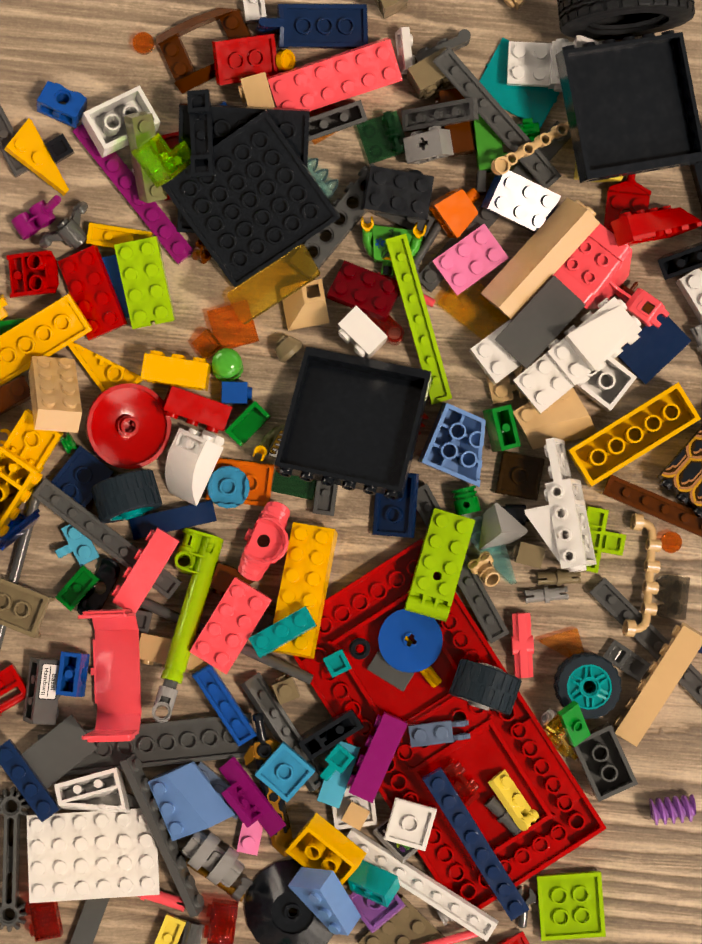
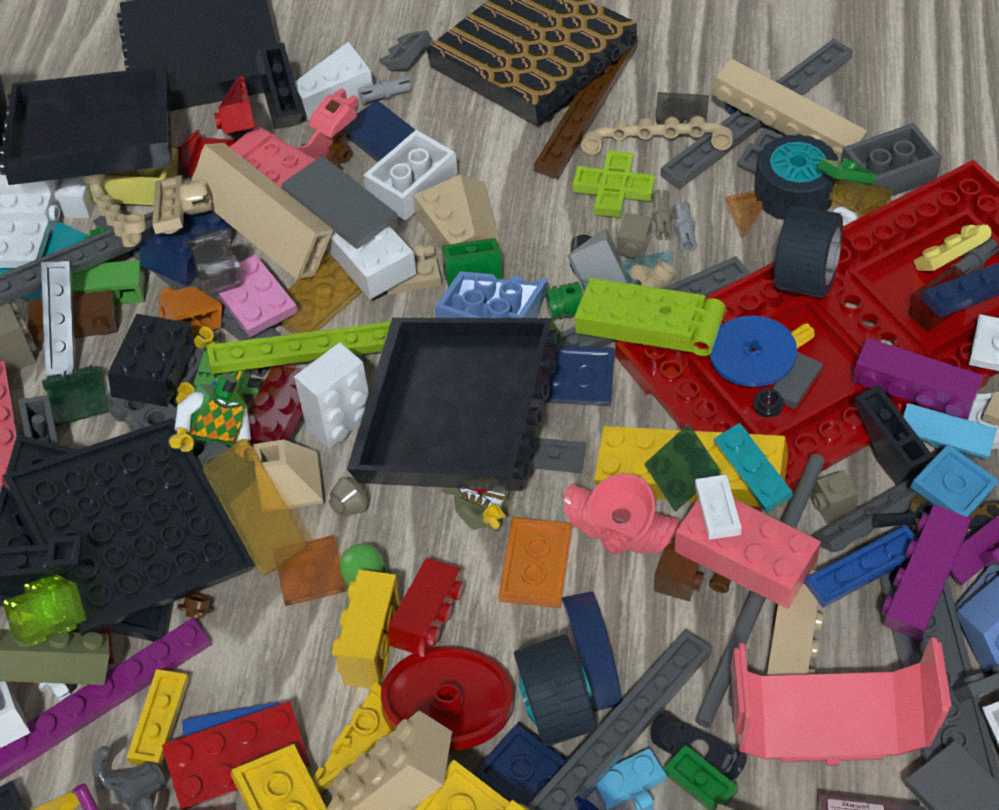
camera: 85 degrees left, 35 degrees down
(72, 674) = (840, 778): blue brick -> none
(144, 282) = (228, 673): lime piece -> none
(145, 570) = (669, 666): coral brick -> none
(191, 463) = (508, 608): white piece -> none
(203, 558) = (641, 602): lime piece -> none
(206, 344) = (331, 600): clear orange tile -> none
(213, 744) = (926, 572): none -> magenta brick
(228, 487) = (543, 569): dark azure tile -> none
(236, 393) = (405, 559): blue brick -> none
(245, 606) = (717, 507): none -> white plate
(248, 423) = (449, 546): green panel -> none
(285, 584) = (679, 465): none -> clear green hinge
(293, 486) = (542, 494): clear green tile -> none
(337, 663) = (792, 426): teal plate -> none
(338, 760) = (930, 421): teal plate -> none
(339, 244) = (212, 415): none -> torso
(428, 146) = (103, 322): light grey brick -> none
(436, 733) = (875, 316): sand blue hinge -> none
(481, 182) = (152, 288): dark grey tile -> none
(481, 229) = (214, 262): none -> clear smoke brick
(519, 475) = (533, 255): dark brown tile -> none
(522, 645) = (747, 245): coral piece -> none
(543, 190) = (174, 199): none -> tan plate
(565, 519) = (592, 200): white wedge -> none
(579, 353) = (377, 159): white wedge -> none
(633, 434) = (487, 143): yellow brick -> none
(671, 542) = (614, 113): clear orange tile -> none
(673, 809) = (939, 104): medium lavender piece -> none

